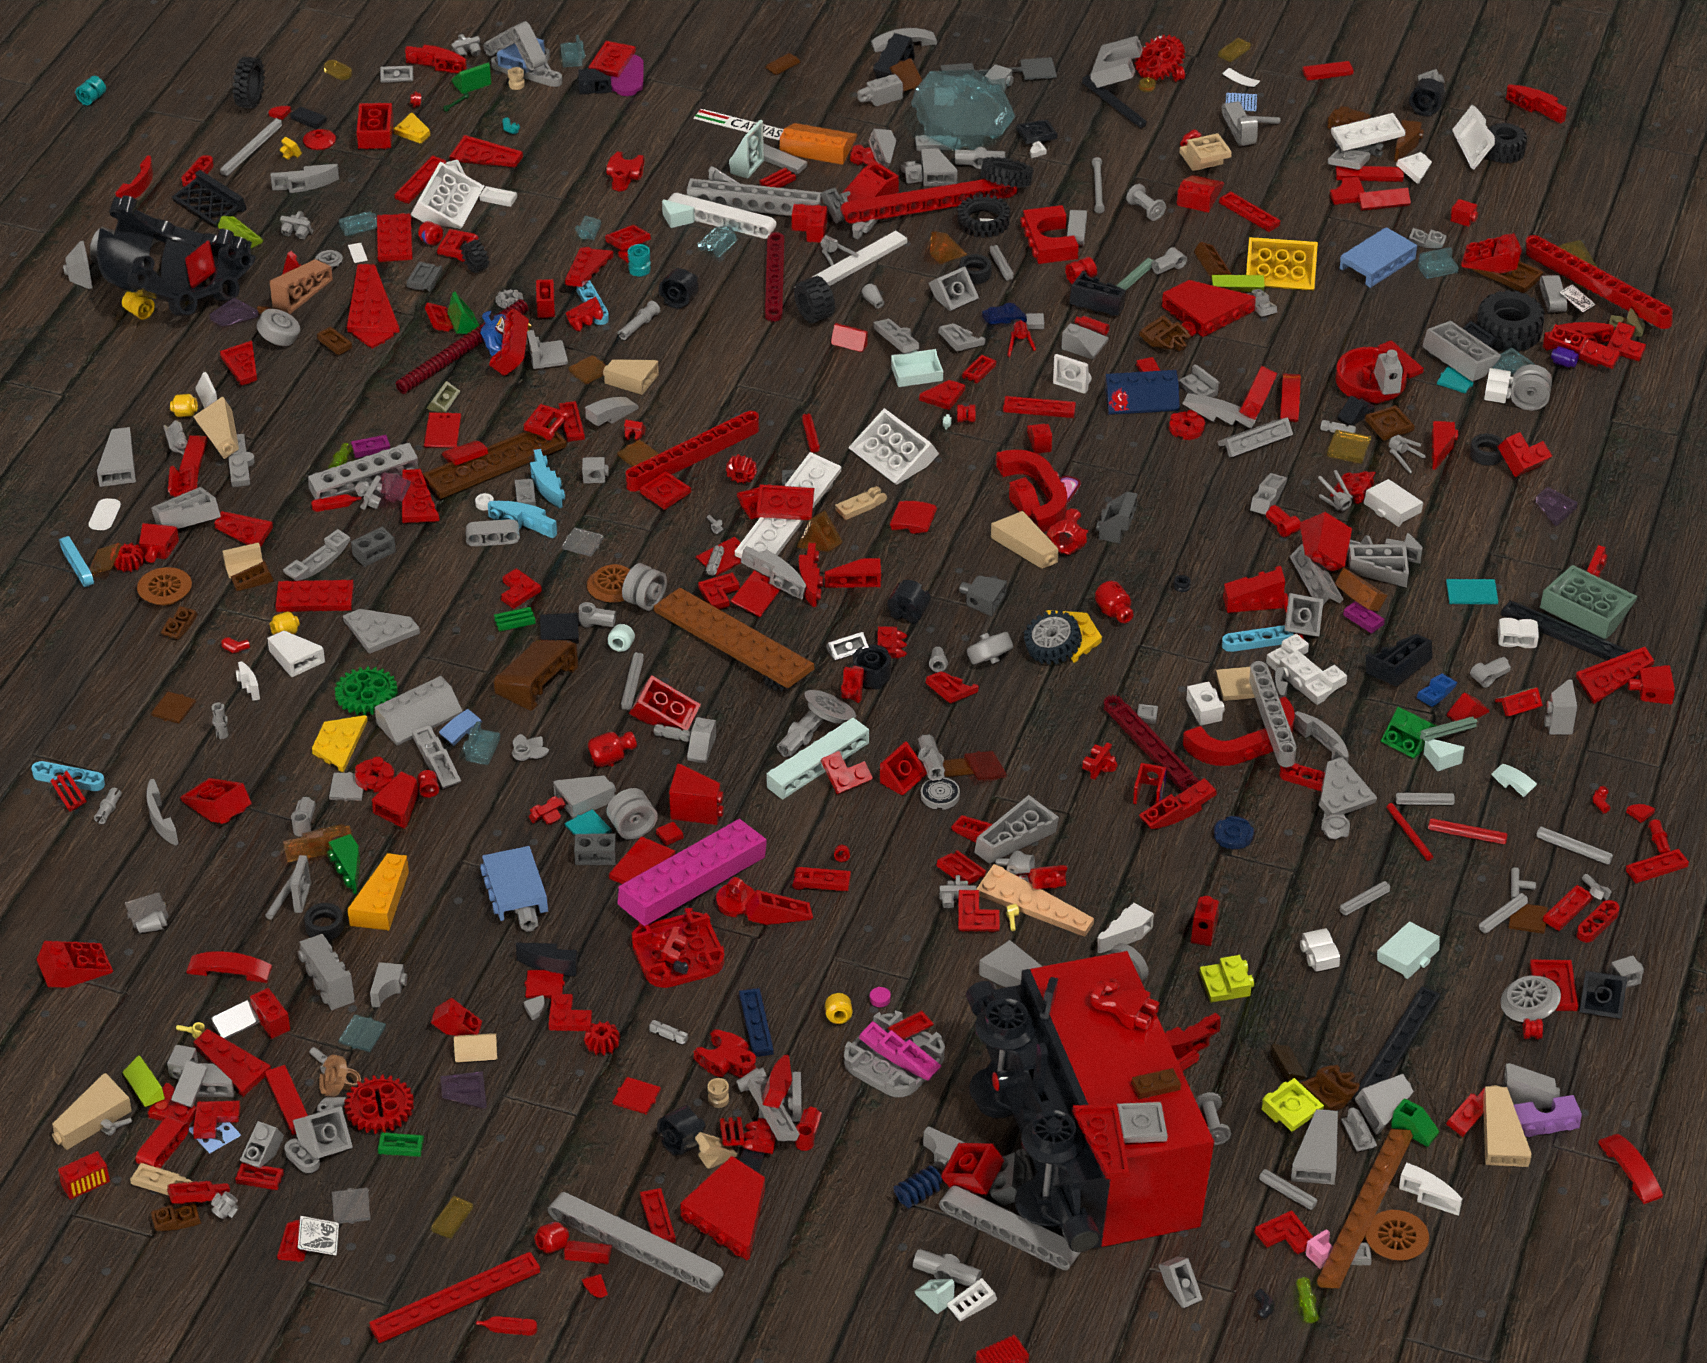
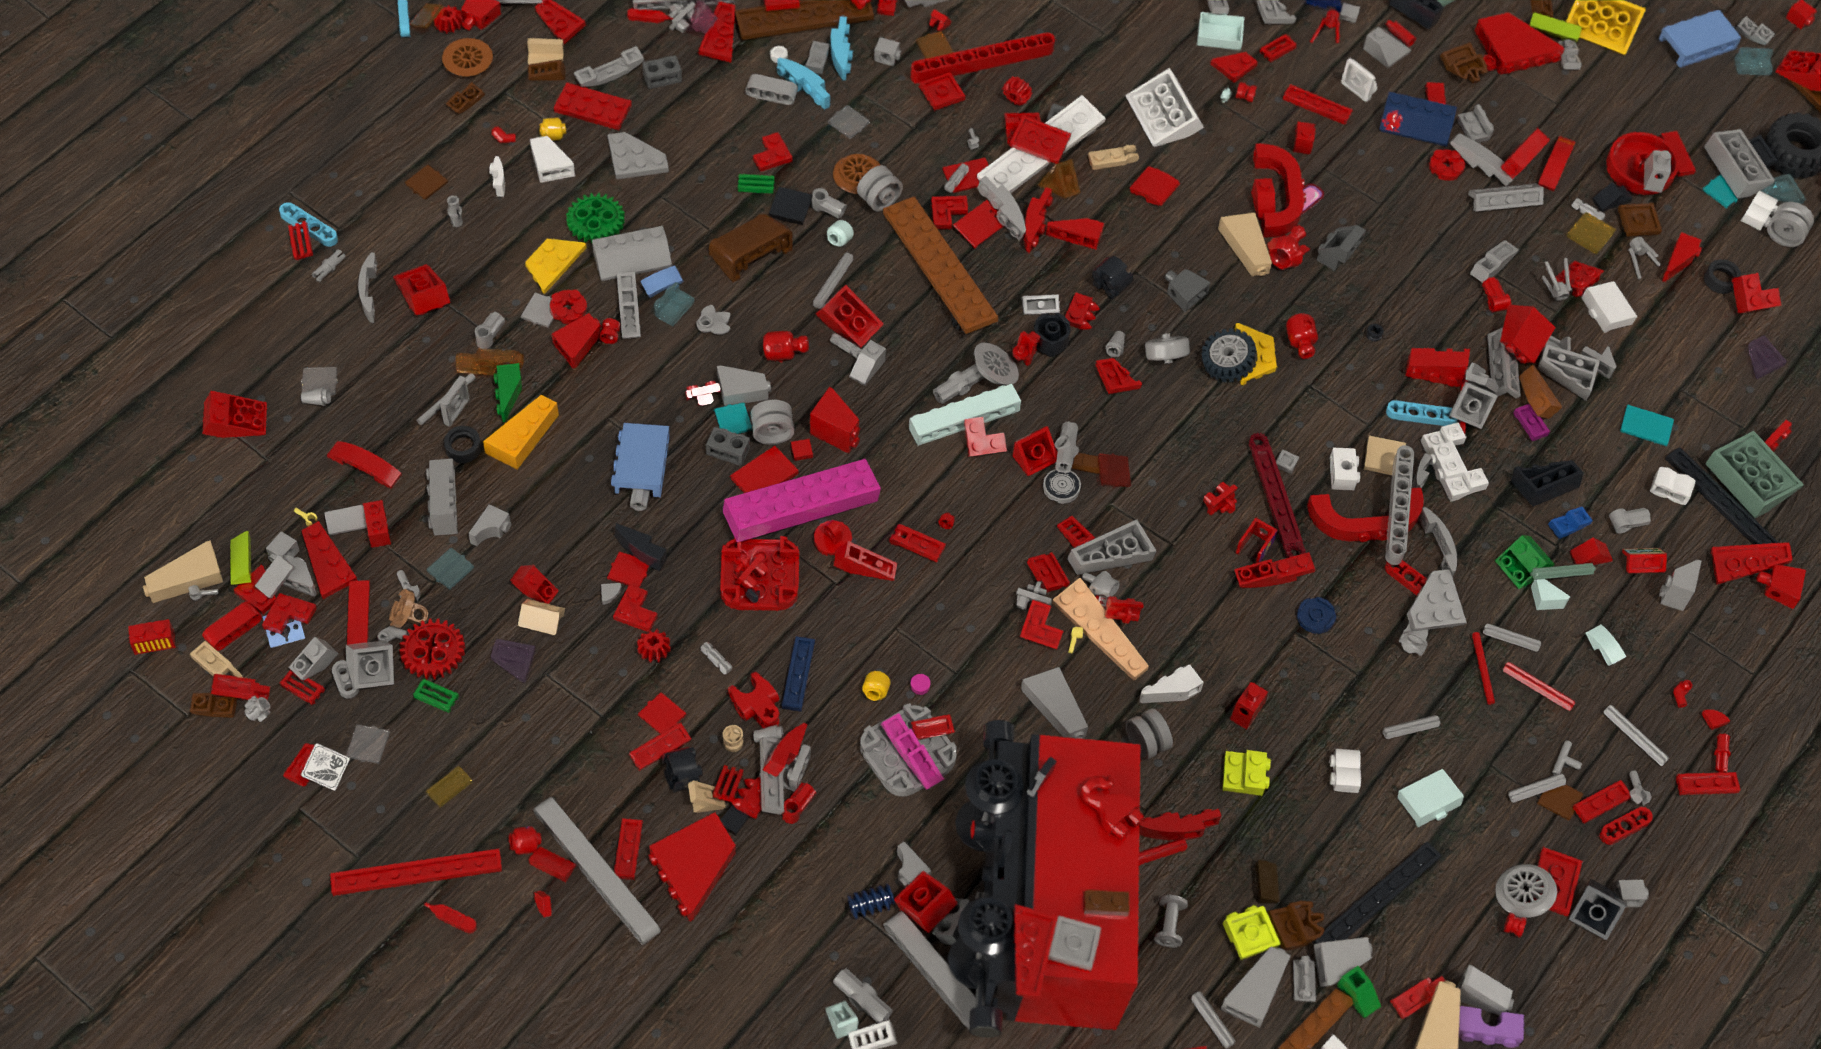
camera: 15 degrees right, 15 degrees up
(646, 1122) = (654, 749): none -> red tile
(810, 433) = (1097, 70): red axle -> none
(1294, 587) = (1477, 376): none -> light grey bracket

